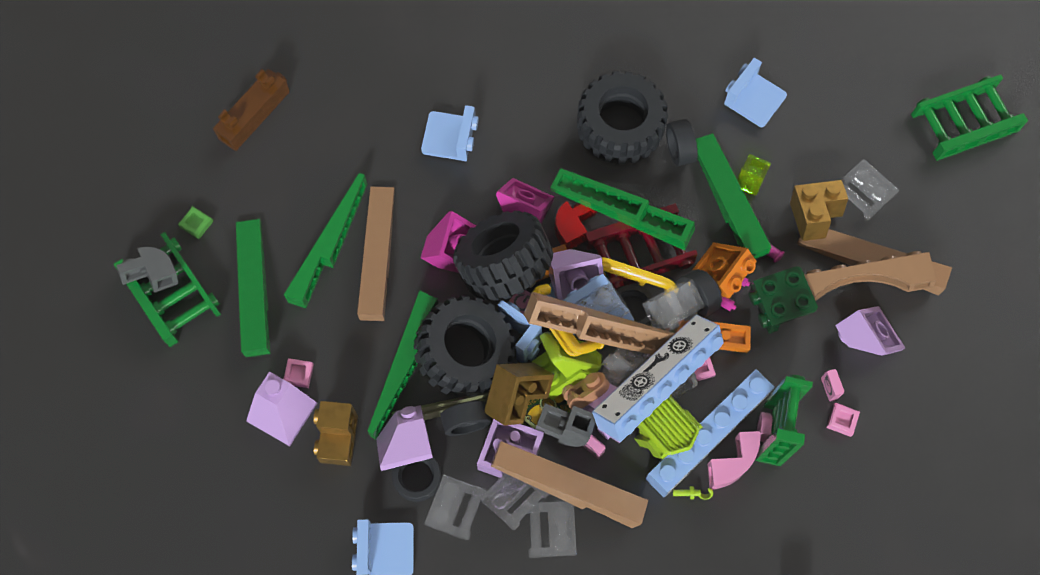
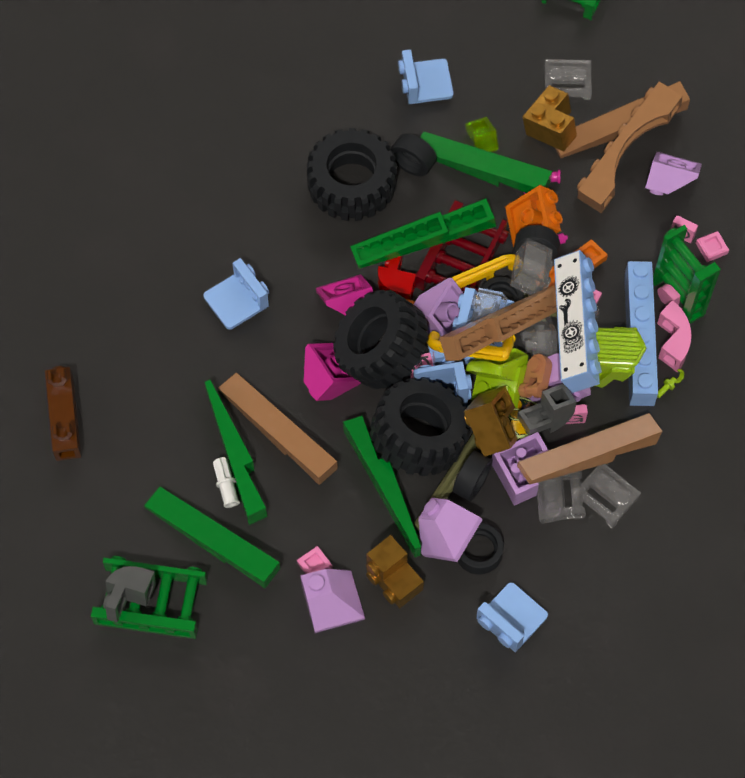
camera: 45 degrees left, 5 degrees down
(195, 222) = (112, 534): bright green tile -> none
(300, 256) = (225, 482): none -> white axle
(447, 503) = (519, 548): clear plate -> none
(782, 298) = (593, 201): dark green bracket -> none

